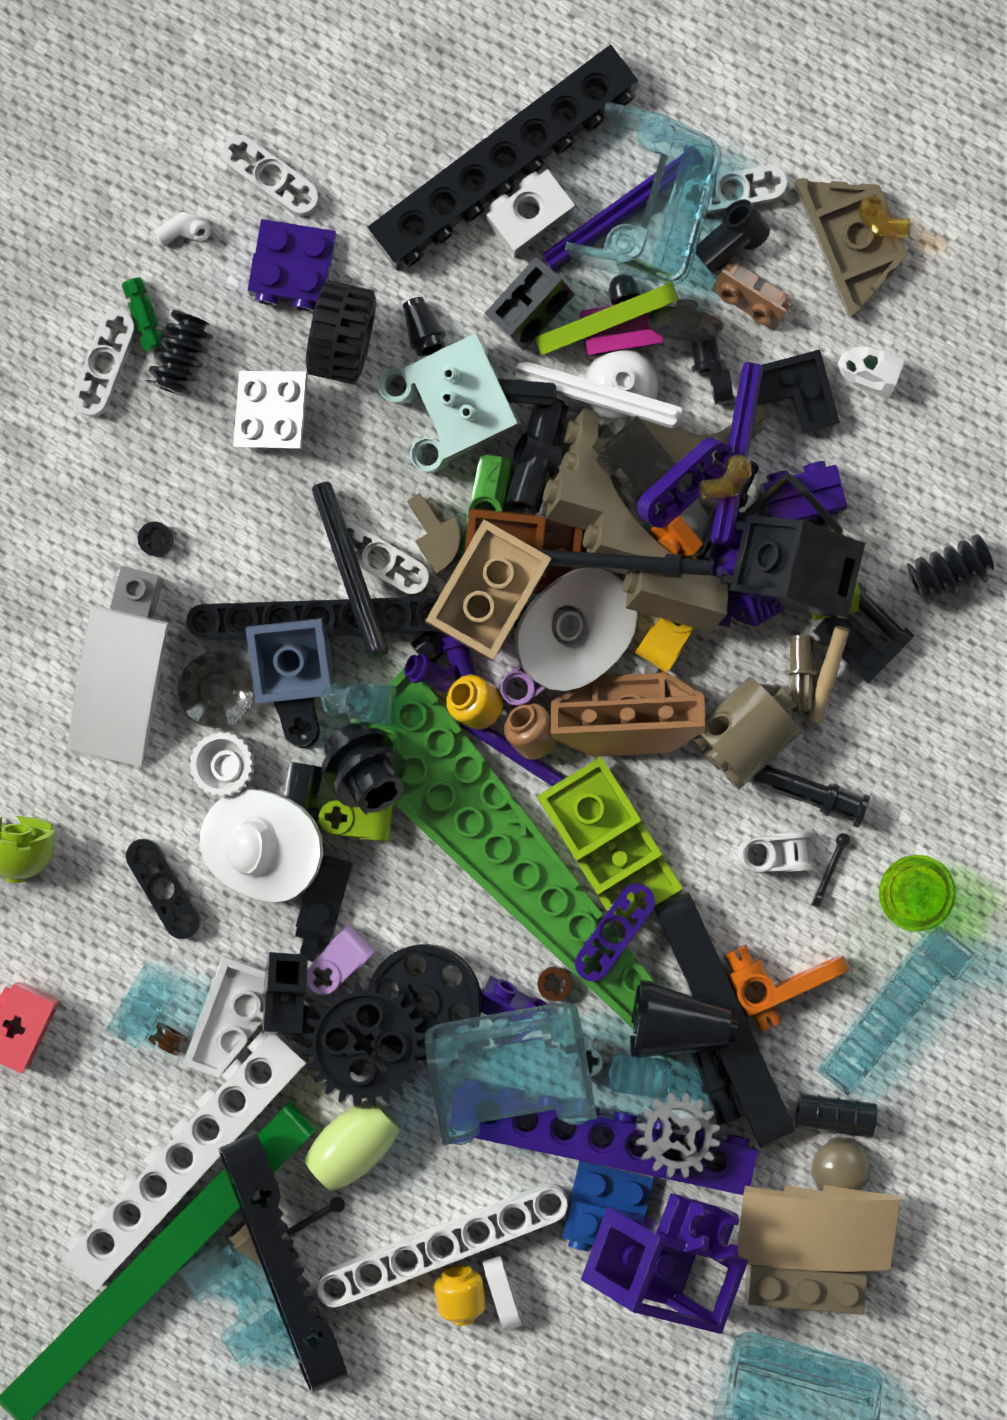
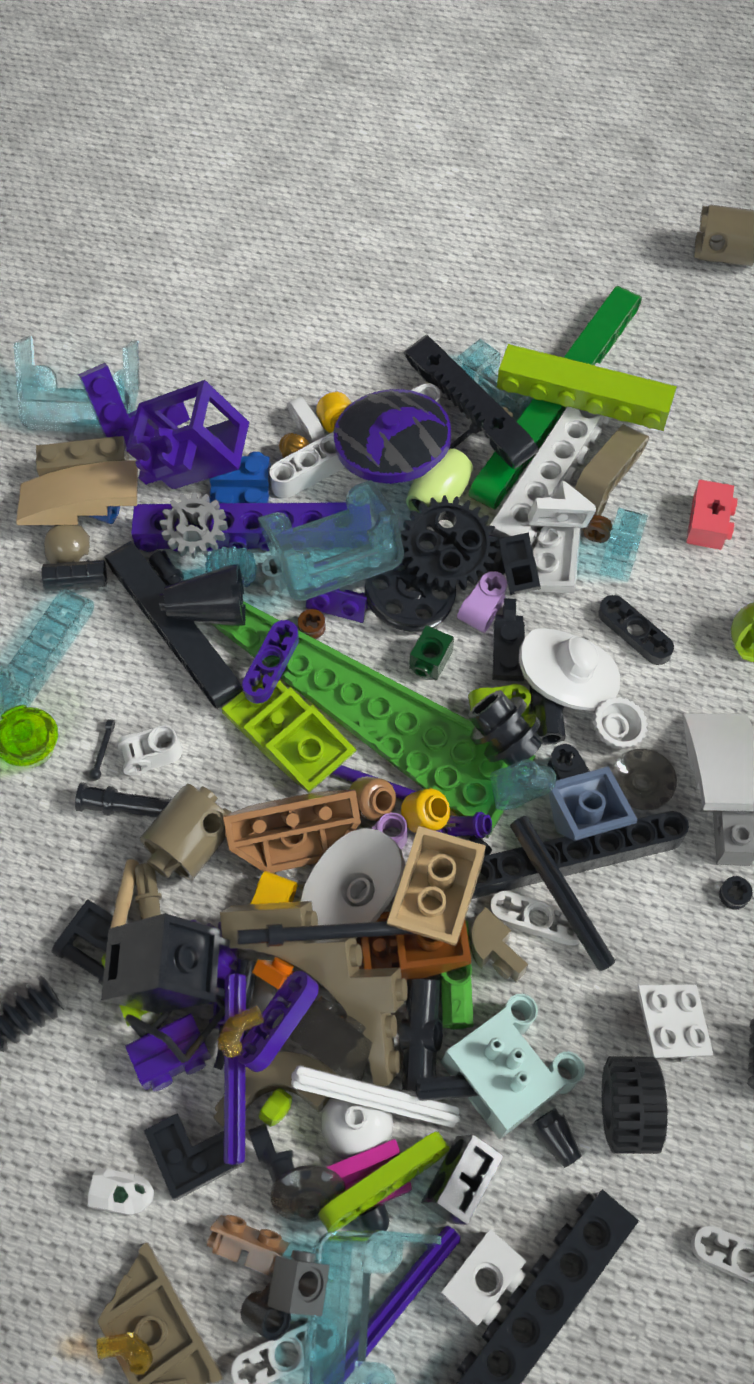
camera: 170 degrees right, 25 degrees down
(127, 1120) = (611, 465): none -> dark tan beam
(127, 1240) = (585, 387): none -> lime brick
(202, 1058) = (565, 510): none -> white slope
(290, 264) = (698, 1172): dark purple plate -> none
(398, 1221) = (392, 436): none -> dish
(407, 917) = (432, 642): none -> dark green brick
(527, 1251) = (291, 443): none -> pearl gold piece
(701, 416) = (275, 1107): none -> lime tile
(710, 235) = (310, 1293): none -> dark grey brick
(746, 970) = (128, 651): orange piece -> none
(746, 1329) = (110, 408): none -> dark purple plate

